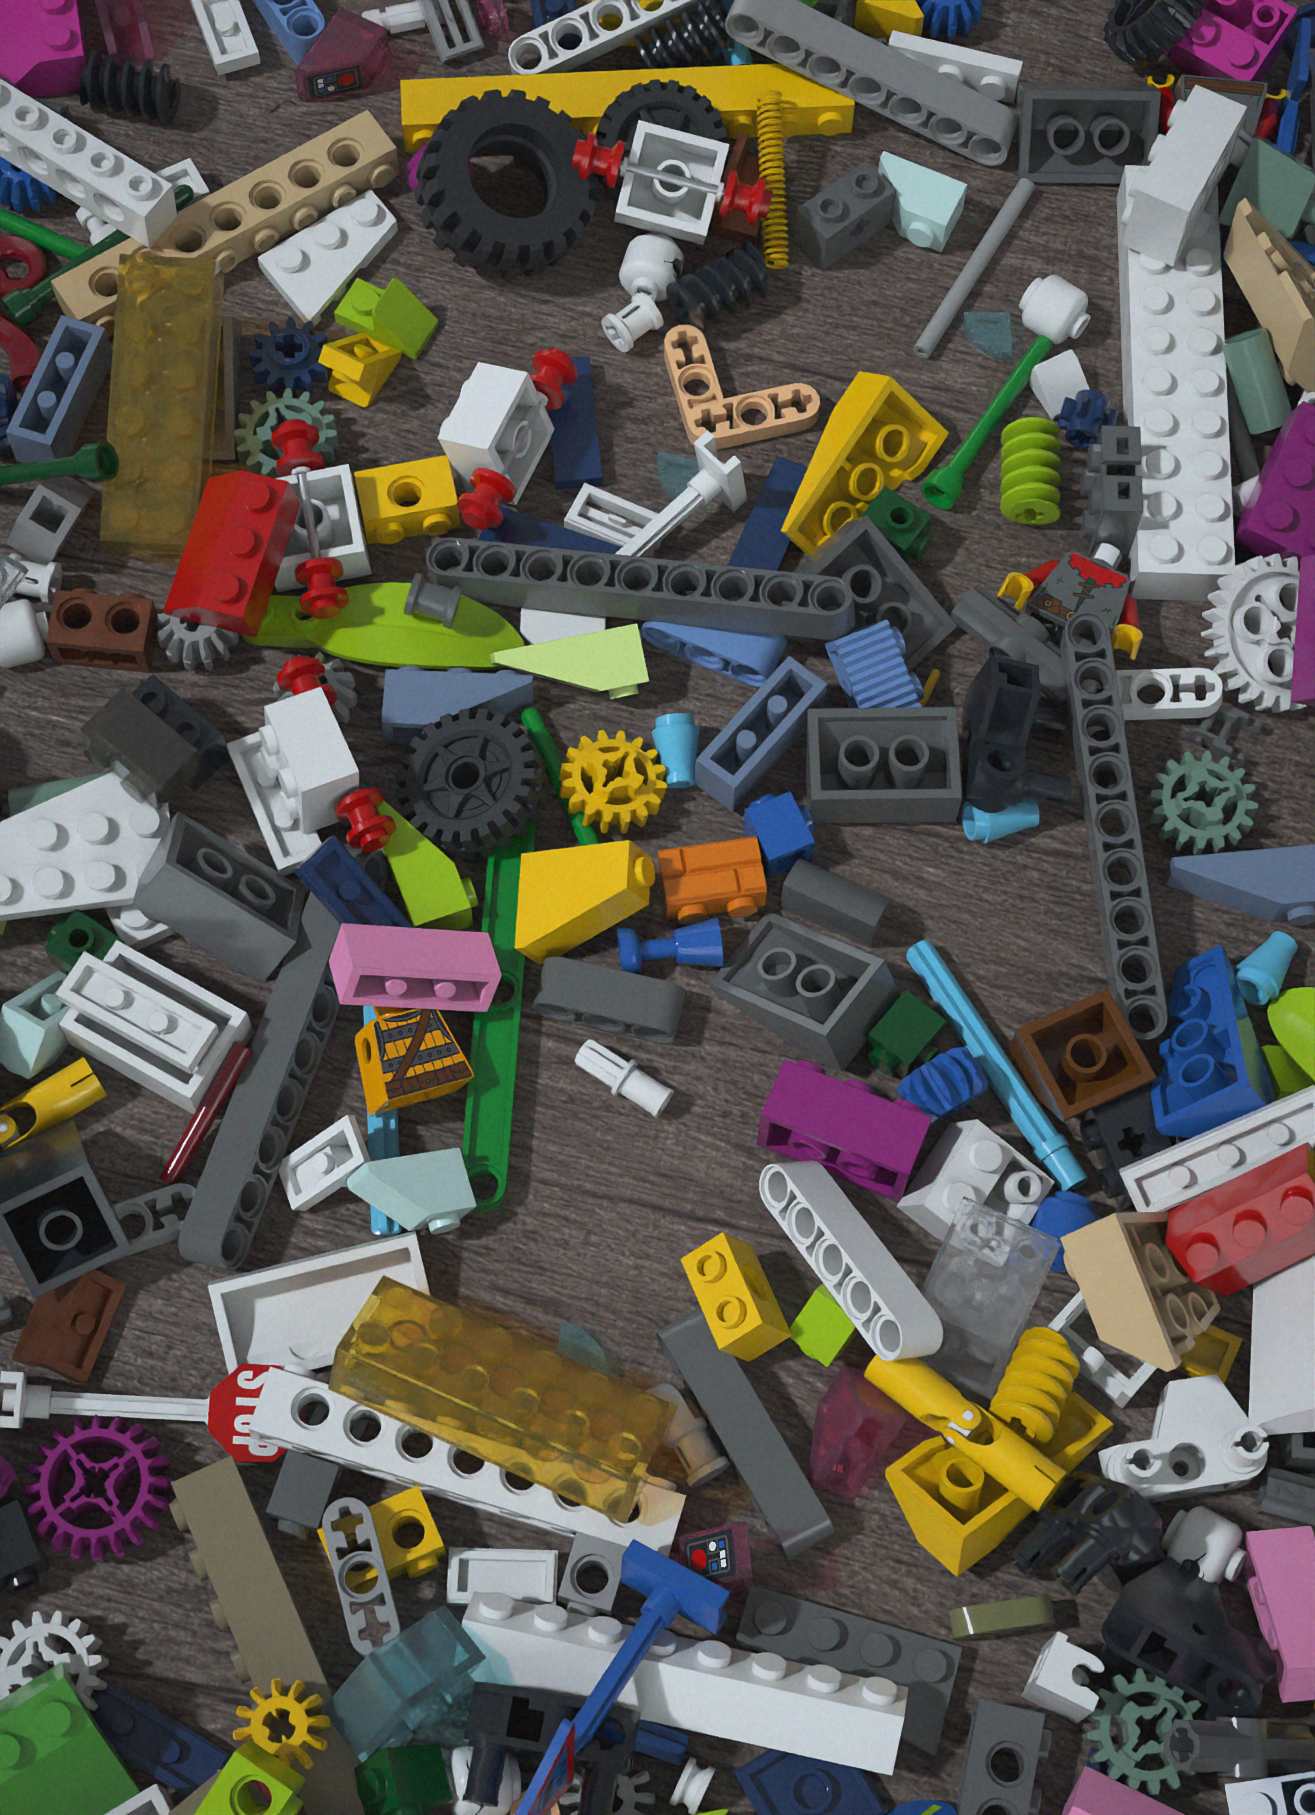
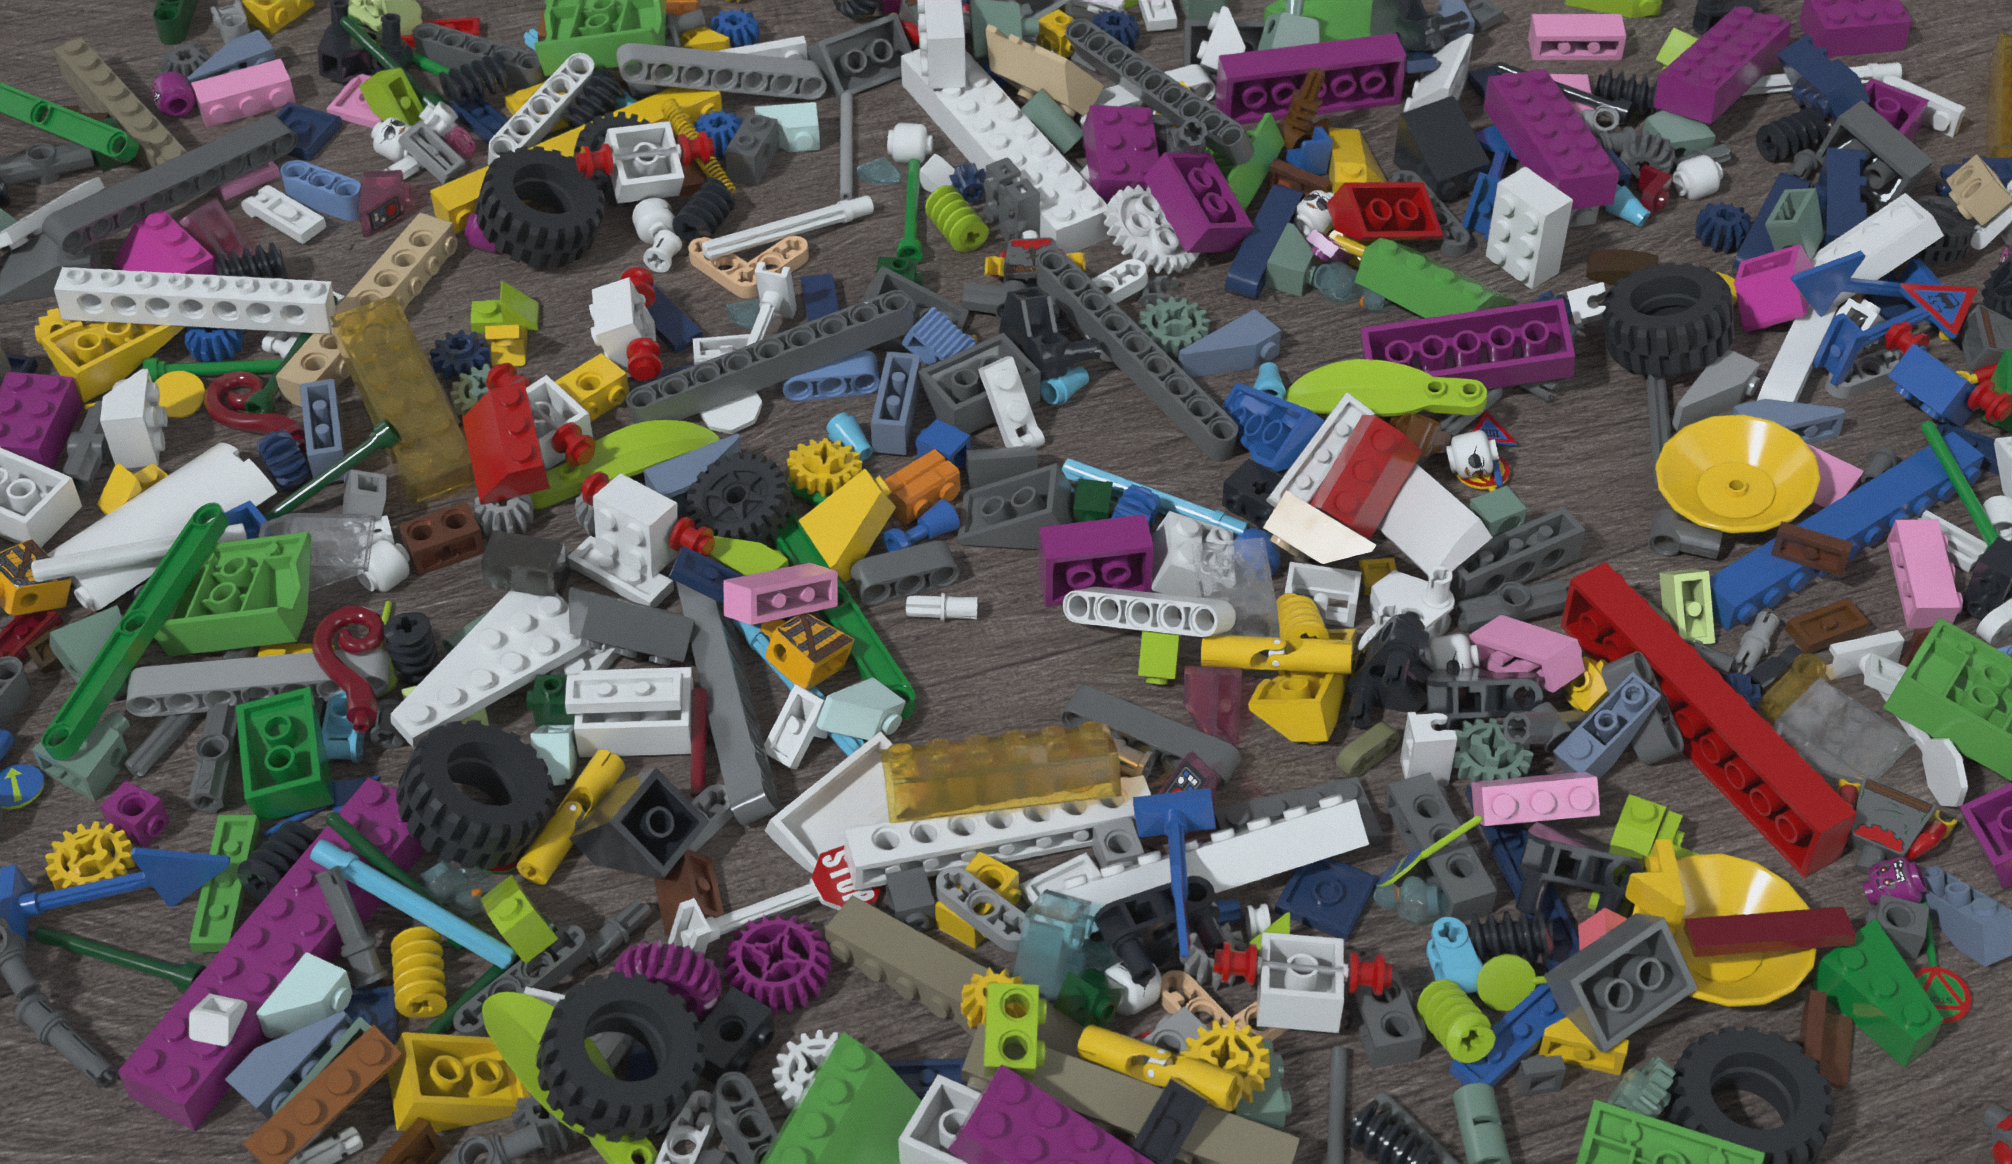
camera: 30 degrees left, 20 degrees down
(324, 256) = (443, 299): white wing -> none
(433, 600) = (648, 423): dark grey bush -> none
(589, 661) = (763, 416): yellowish green slope -> none
(735, 1297) = (1095, 667): yellow brick -> none
(802, 368) = (842, 212): none -> white axle
(817, 162) = (720, 127): none -> blue gear
(870, 442) = (850, 248): yellow wedge -> none
(894, 825) = (1010, 403): none -> white plate
(1080, 1056) = (1199, 463): reddish brown slope -> none

